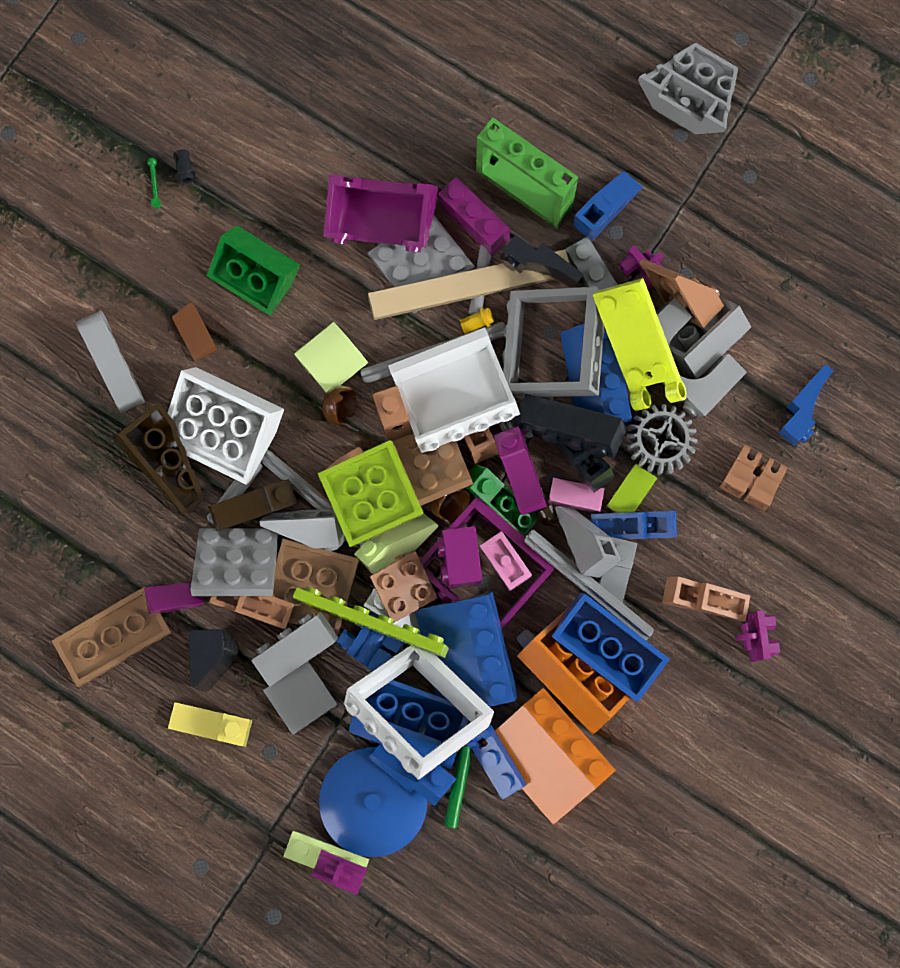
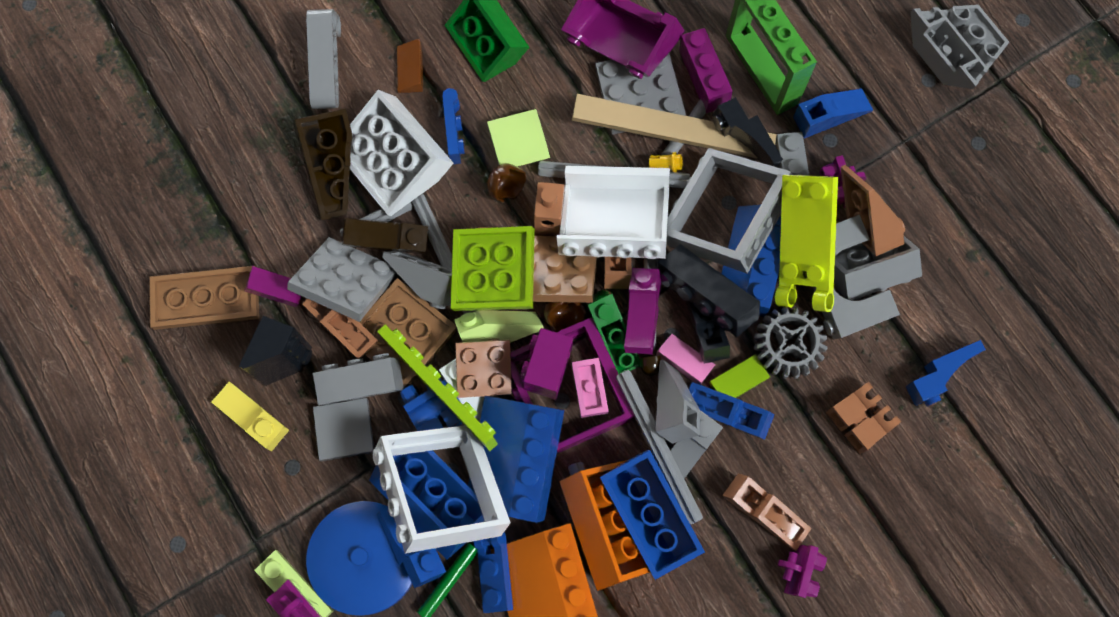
camera: 25 degrees right, 5 degrees down
(264, 371) = (453, 125): none -> blue plate

